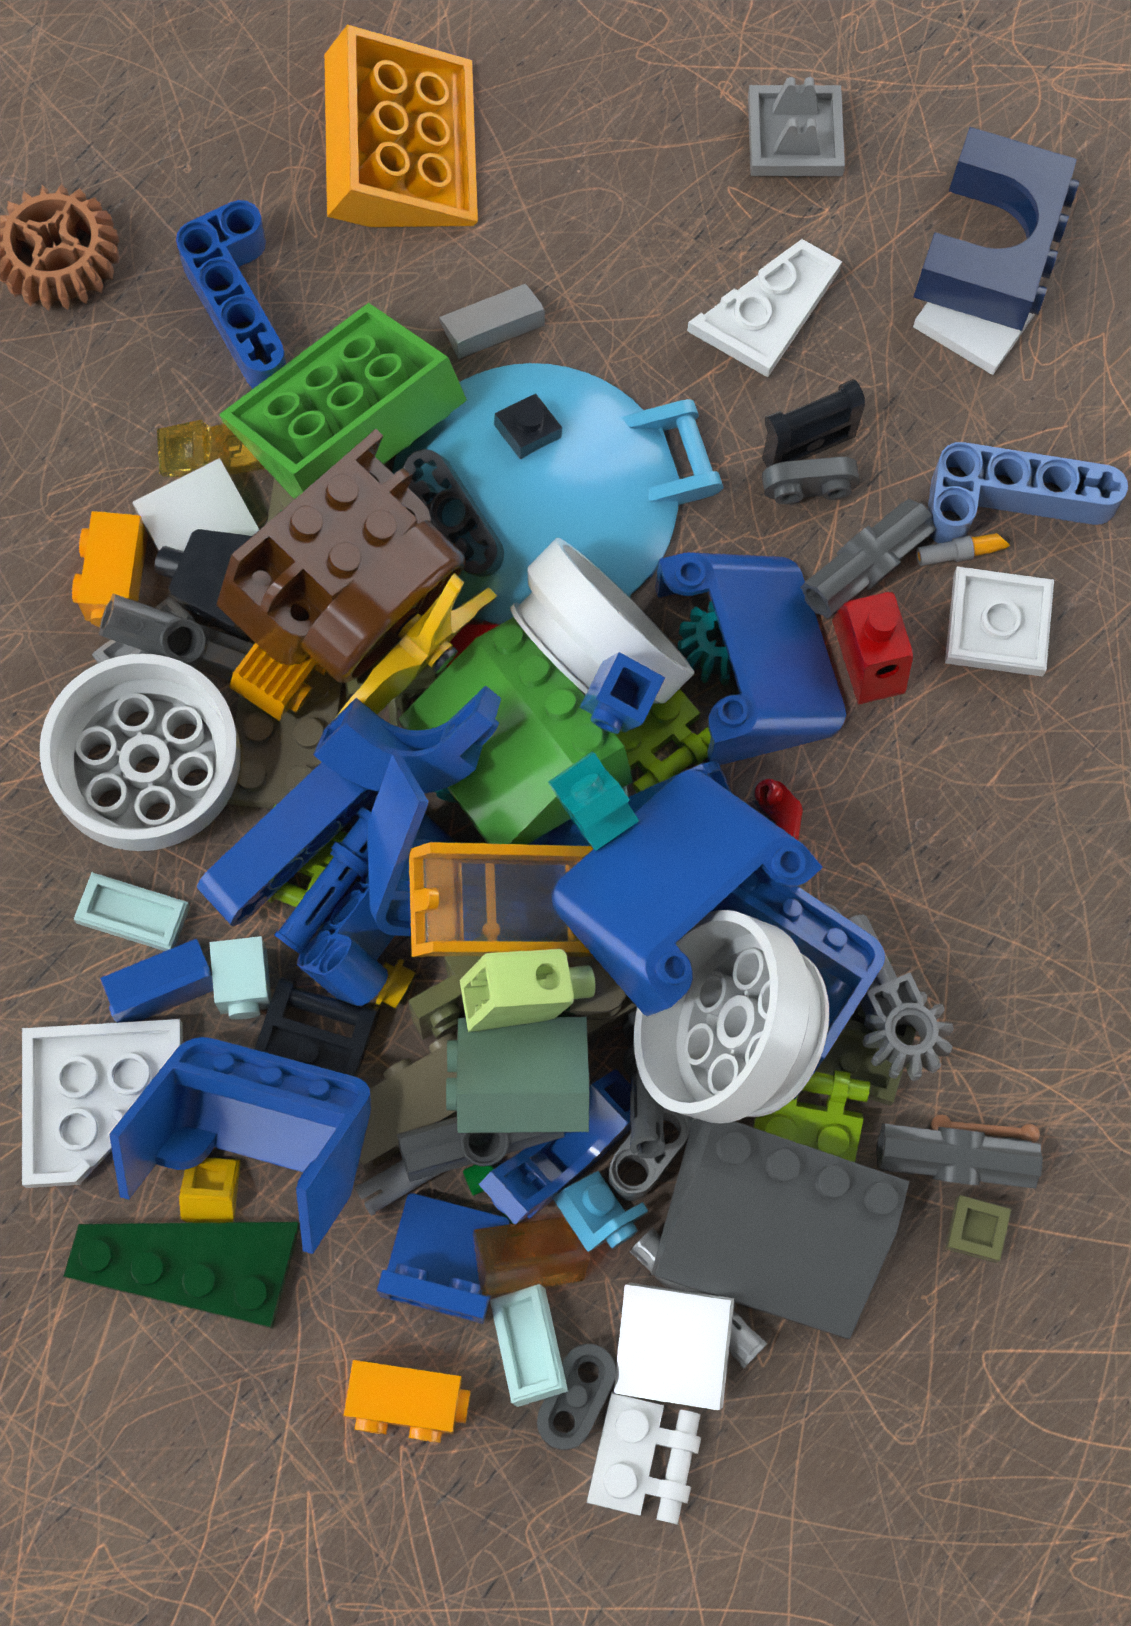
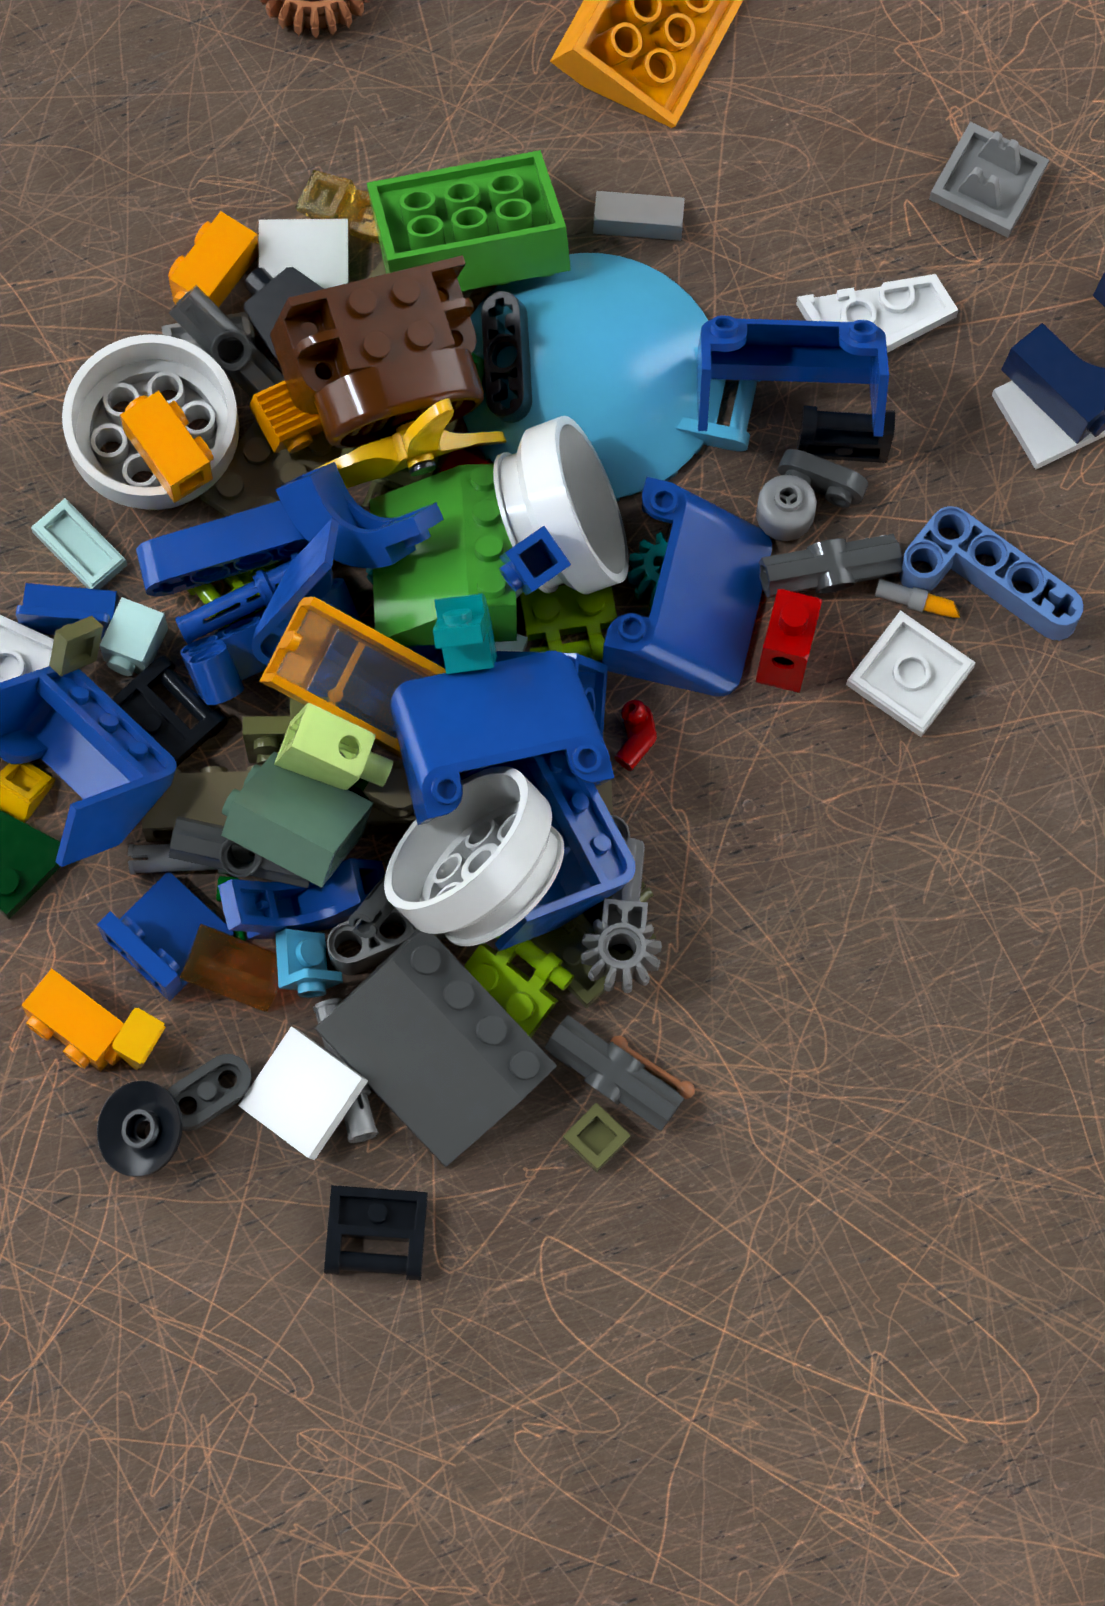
camera: 30 degrees right, 0 degrees up
(175, 766) = (166, 445): none -> light orange brick
(191, 1015) = (76, 645): none -> olive plate
(237, 303) = (435, 60): blue beam -> none
(396, 984) = (248, 704): yellow plate -> none
(480, 1381) = (138, 1037): none -> yellow slope
(514, 1487) = (124, 1123): none -> black dish
(527, 425) = (607, 315): black plate -> none
(528, 1345) = (192, 1033): light aqua tile -> none
(627, 1454) = (222, 1157): white plate -> none
(737, 367) = (793, 353): none -> blue windscreen
(796, 523) = (786, 507): none -> light grey head
(814, 1429) = (376, 1216): none -> black plate

